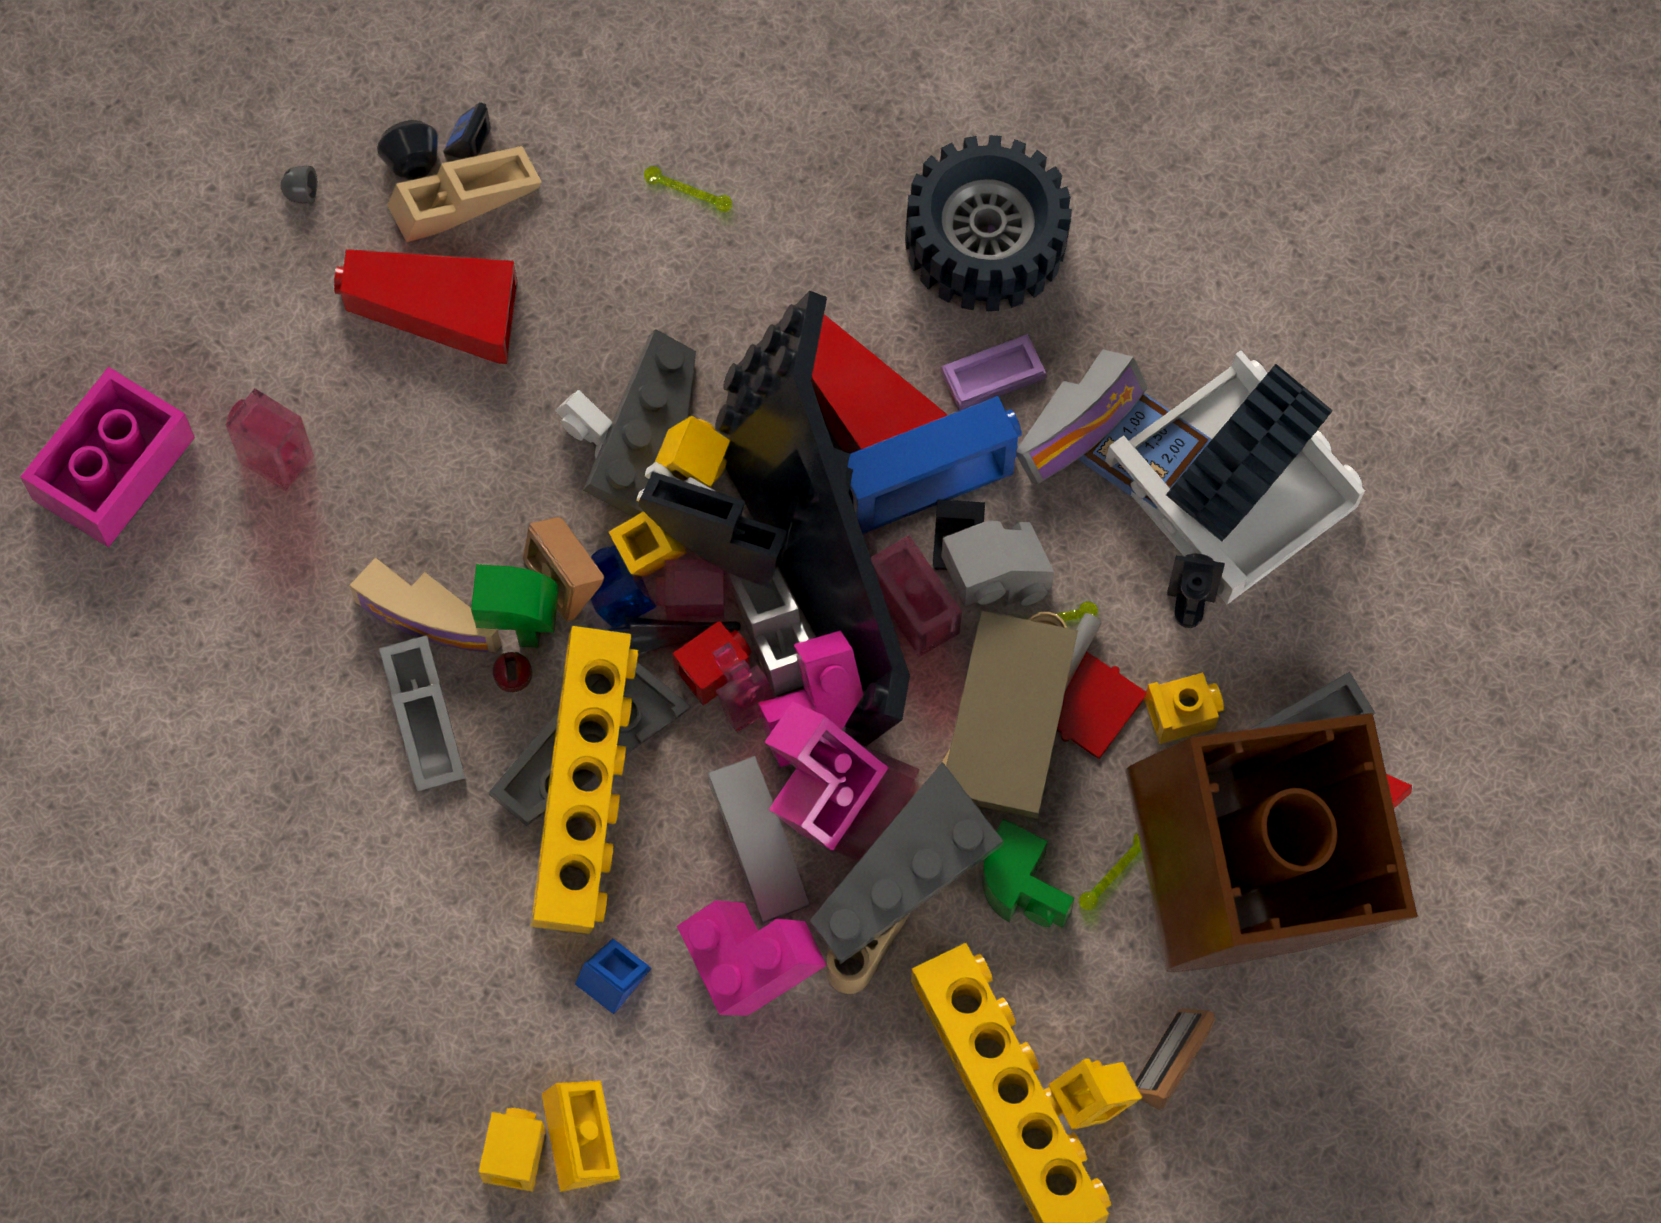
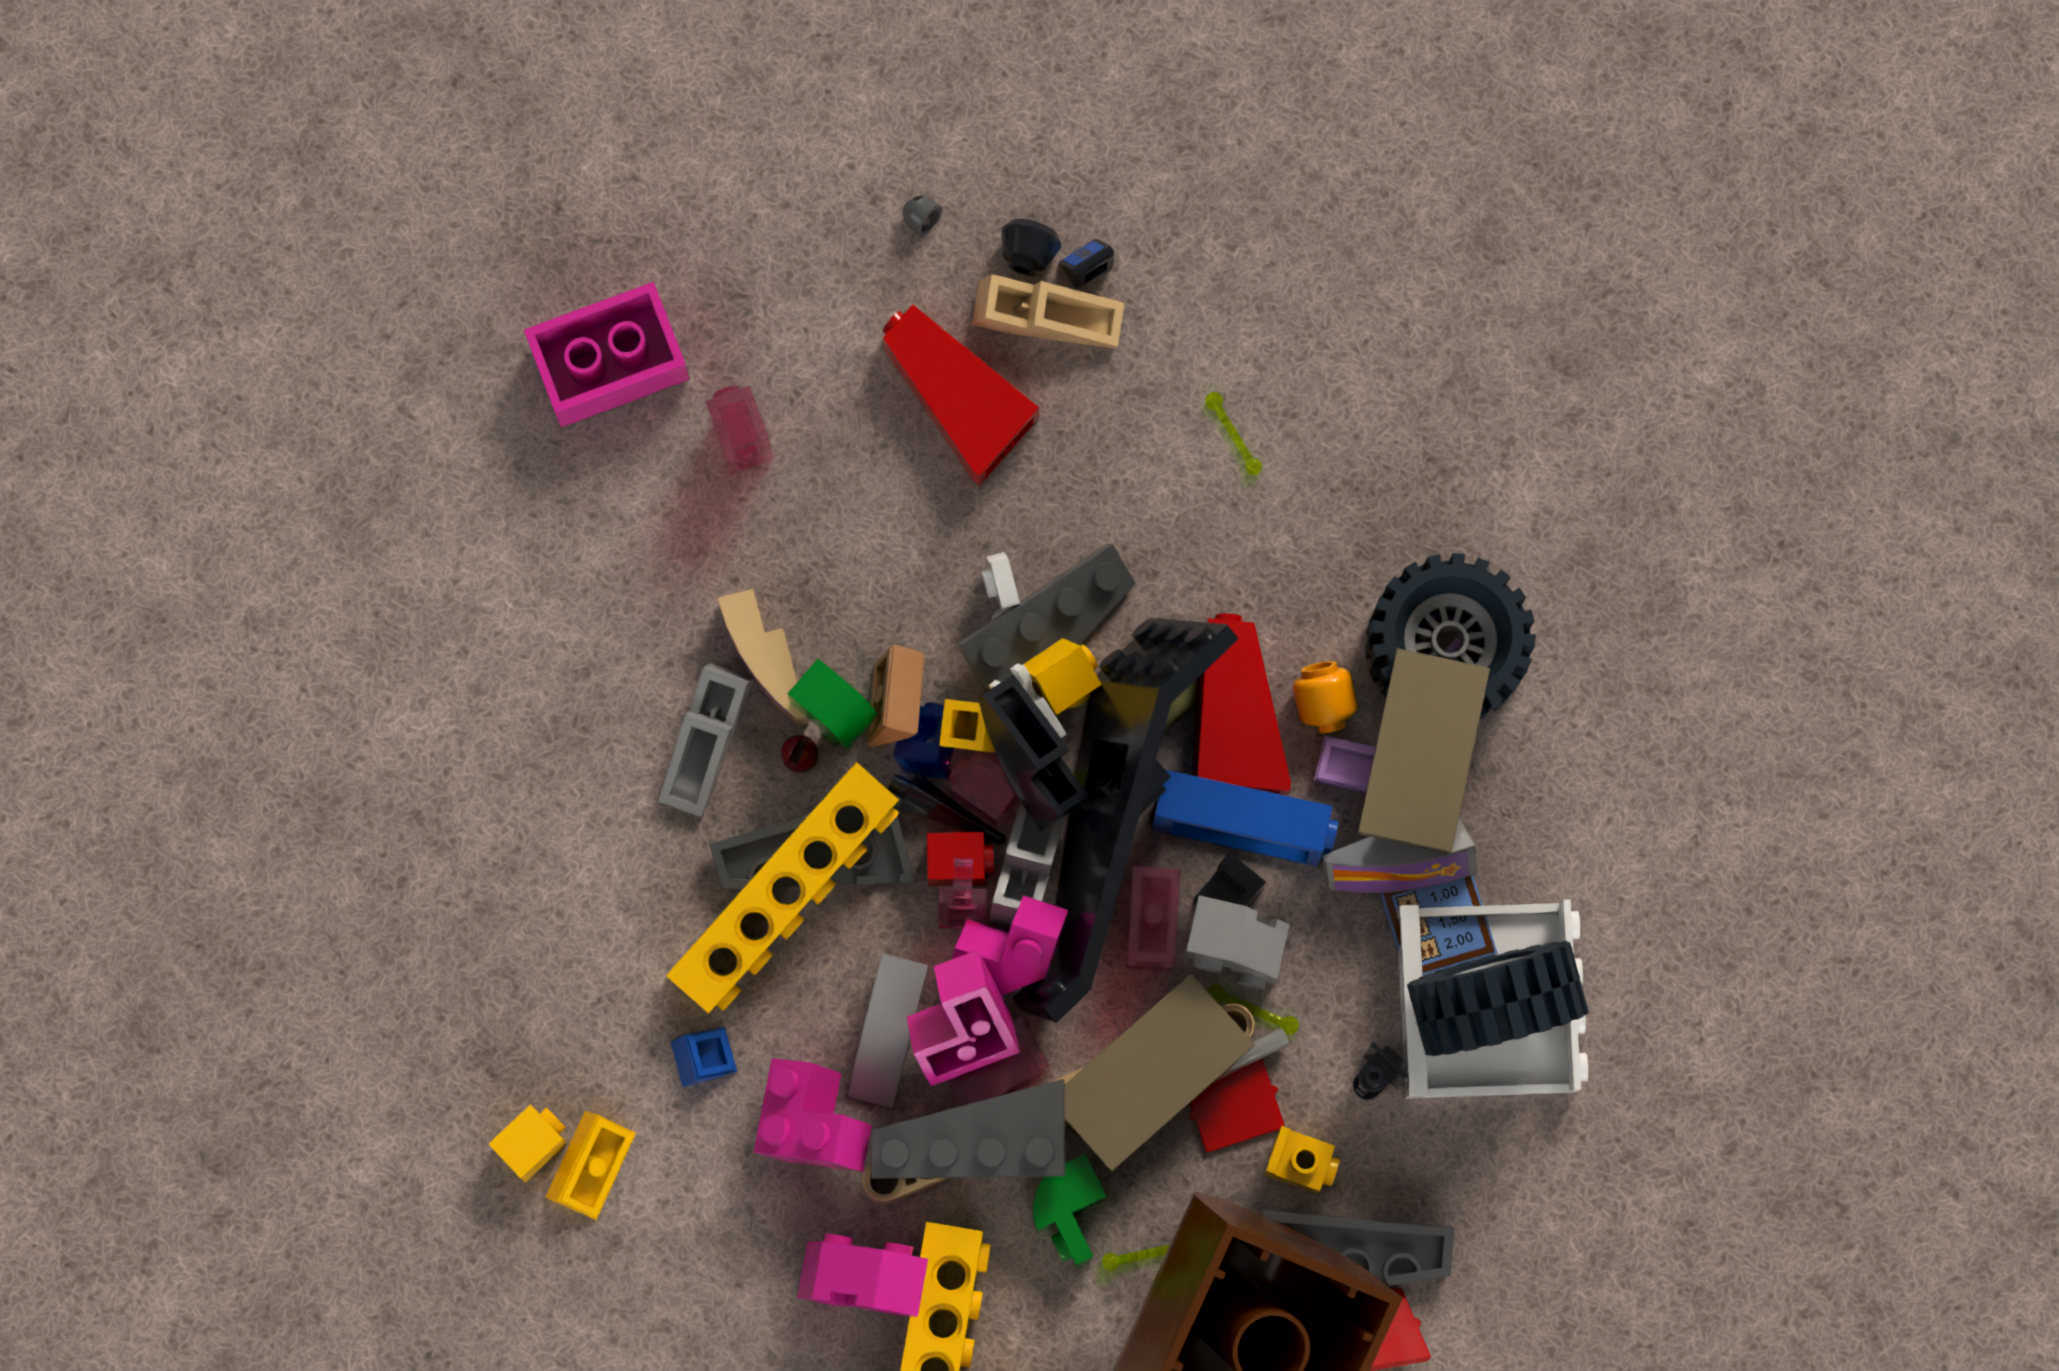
camera: 35 degrees right, 10 degrees up
(904, 1044) = (862, 1276): none -> dark pink brick
(919, 333) = (1325, 696): none -> light orange head
(1037, 309) = (1423, 751): none -> dark tan tile

